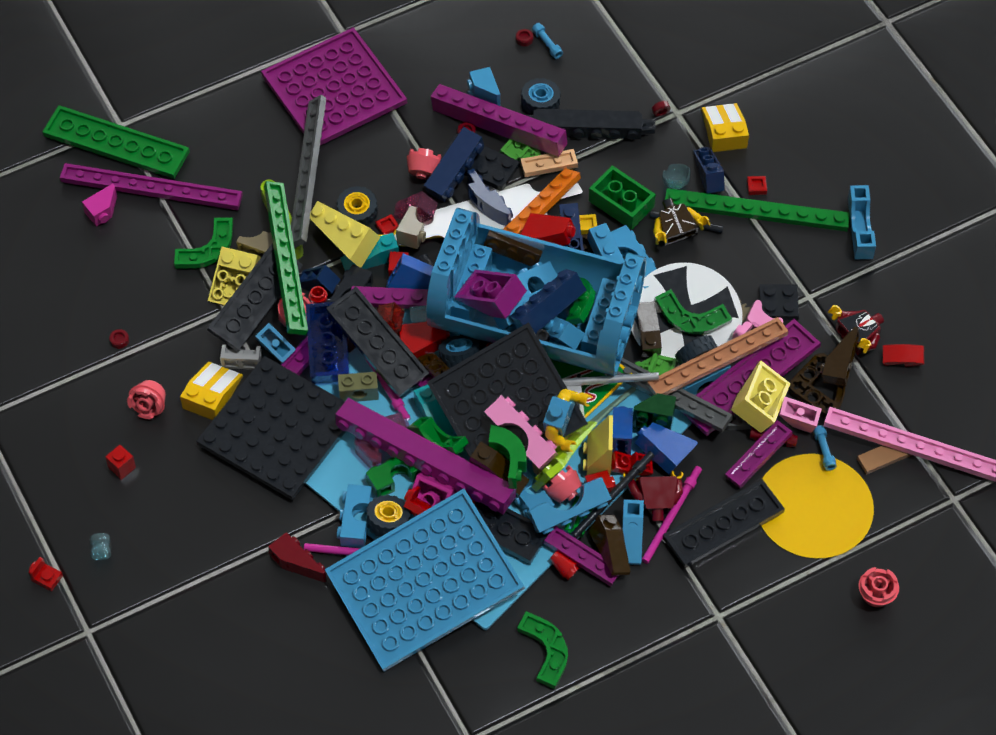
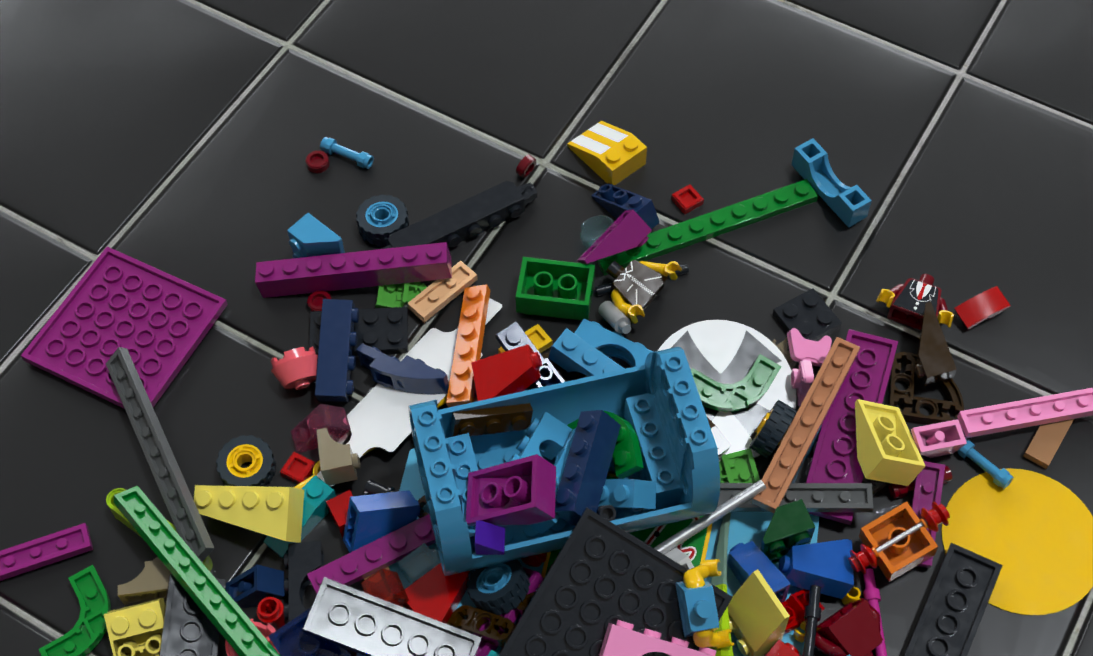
camera: 30 degrees left, 0 degrees up
(460, 310) = (489, 539): none -> dark purple slope
(648, 235) = (615, 317): none -> light grey cylinder
(688, 184) = (624, 234): none -> magenta slope
(723, 456) = (899, 540): none -> orange brick

